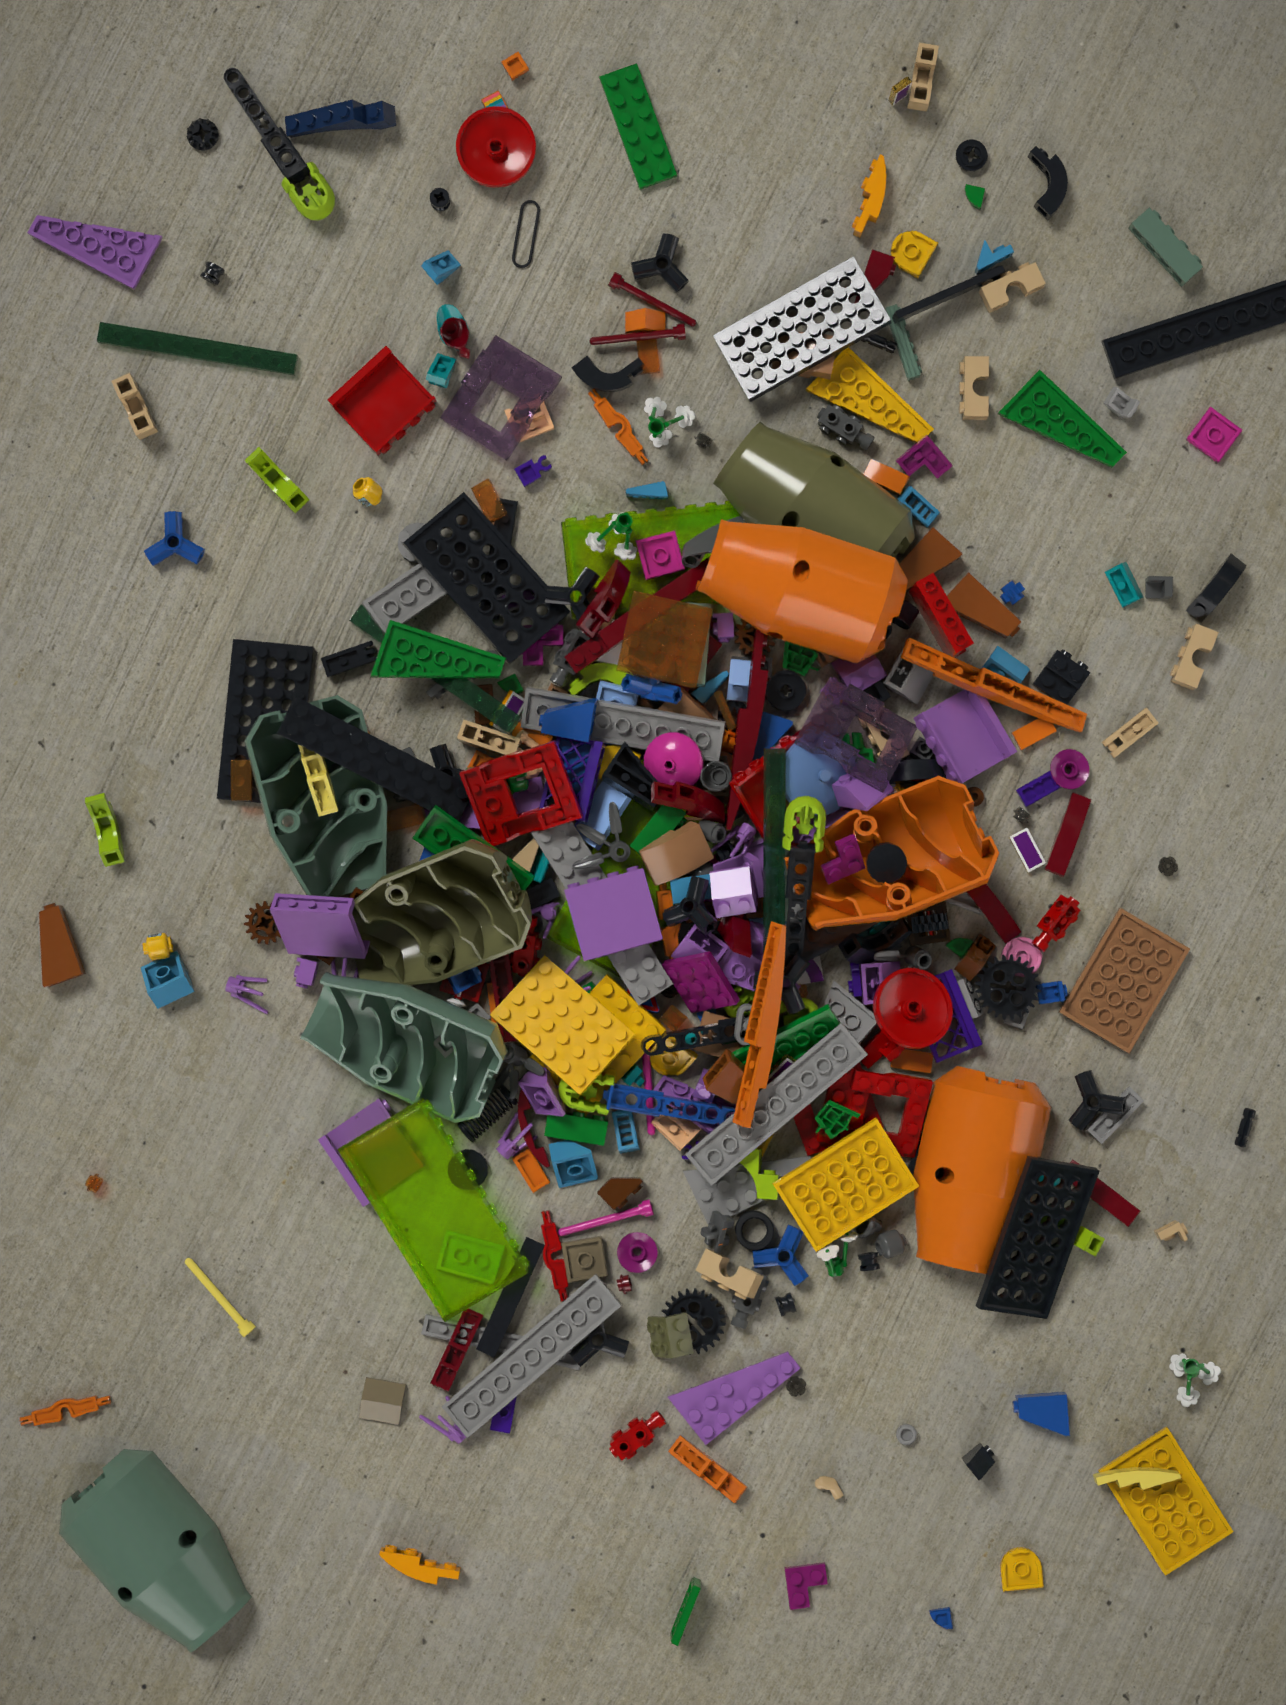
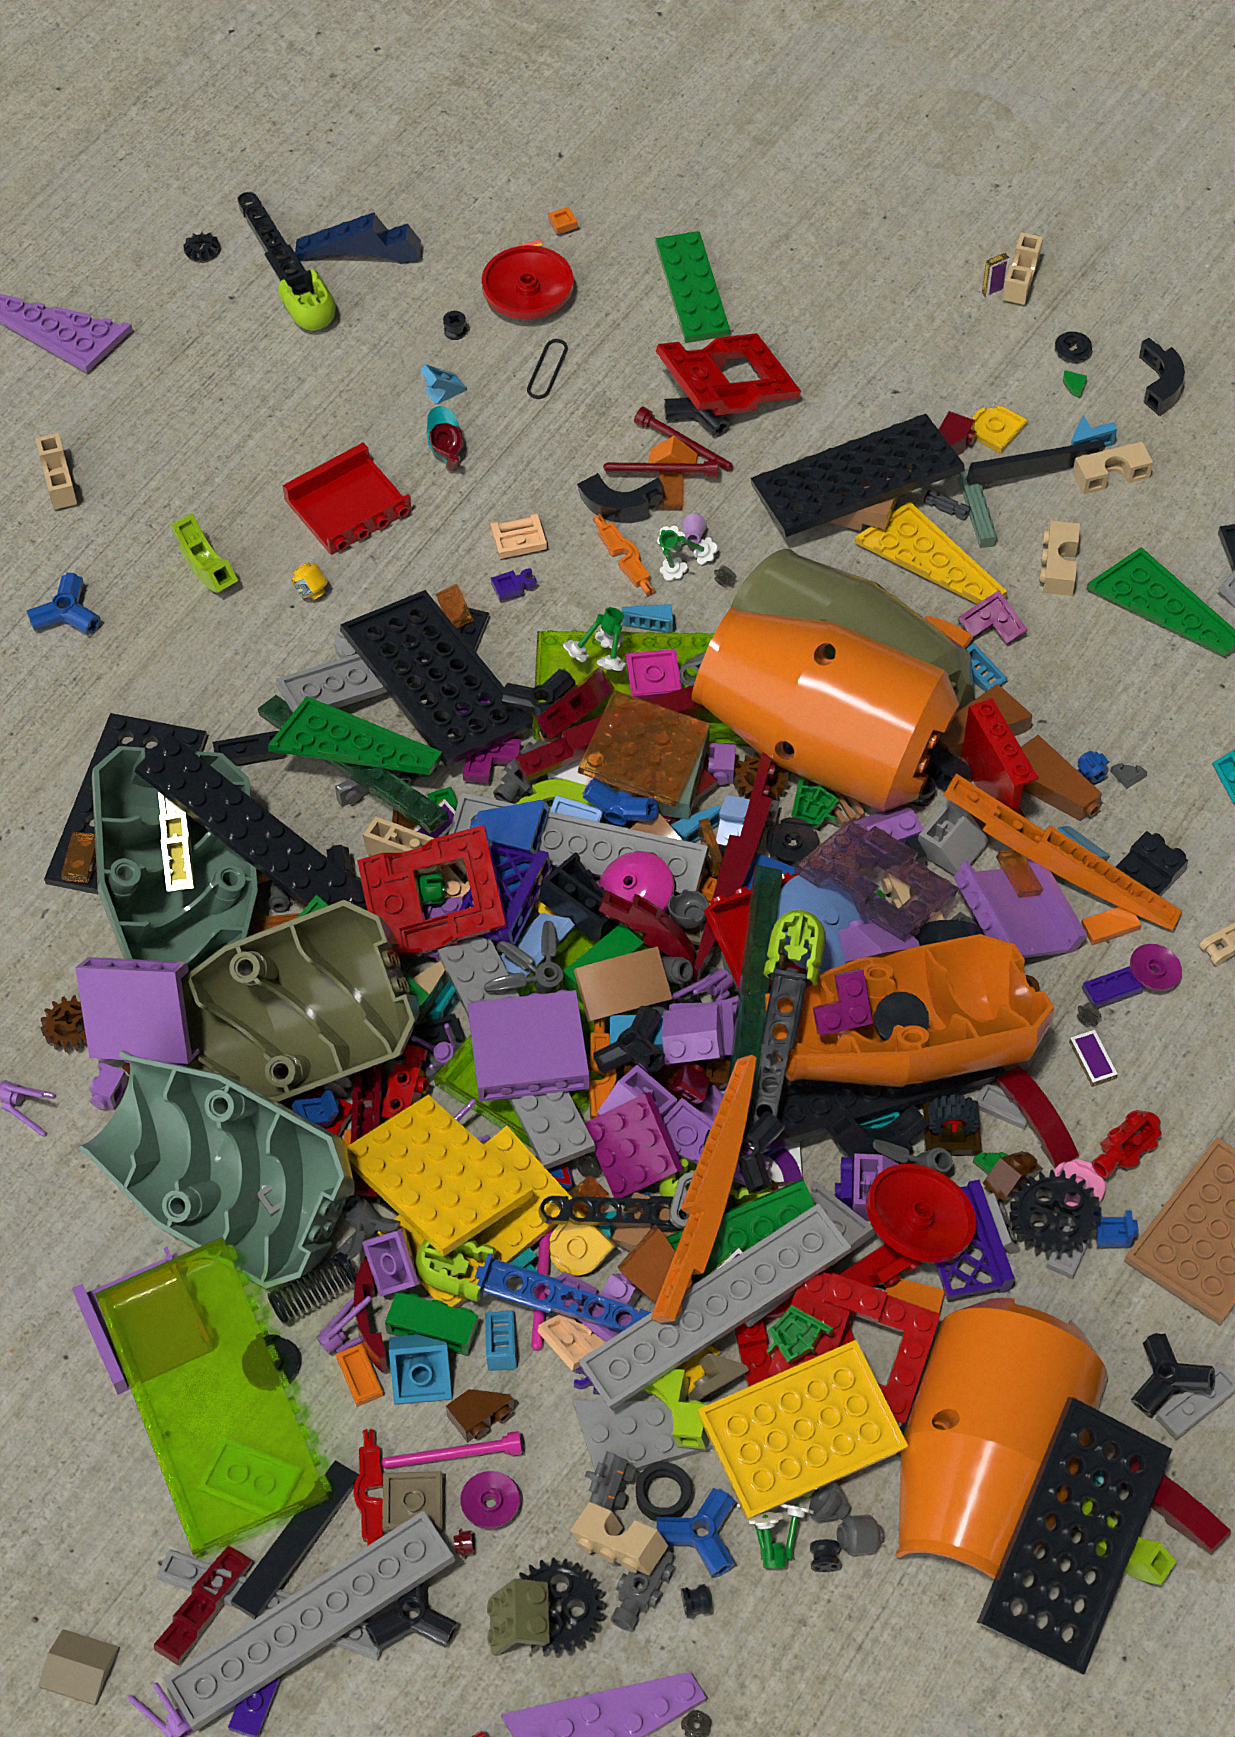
camera: 10 degrees right, 30 degrees down
(197, 348) = (145, 432): clear green plate -> none
(212, 272) = (179, 363): black wheel -> none
(441, 370) = (422, 480): teal slope -> none
(515, 373) = (500, 483): clear purple piece -> none
(662, 247) = (709, 388): none -> red piece
(672, 395) = (694, 527): none -> lavender cone
(784, 1144) = (718, 1374): none -> dark tan slope
(838, 426) = (898, 579): dark grey brick -> none
(874, 190) = (954, 371): light orange slope -> none
(962, 702) = (1019, 873): none -> clear orange tile
(1040, 591) = (1128, 774): none -> dark grey tile
(1068, 834) = (1149, 1042): dark red slope -> none

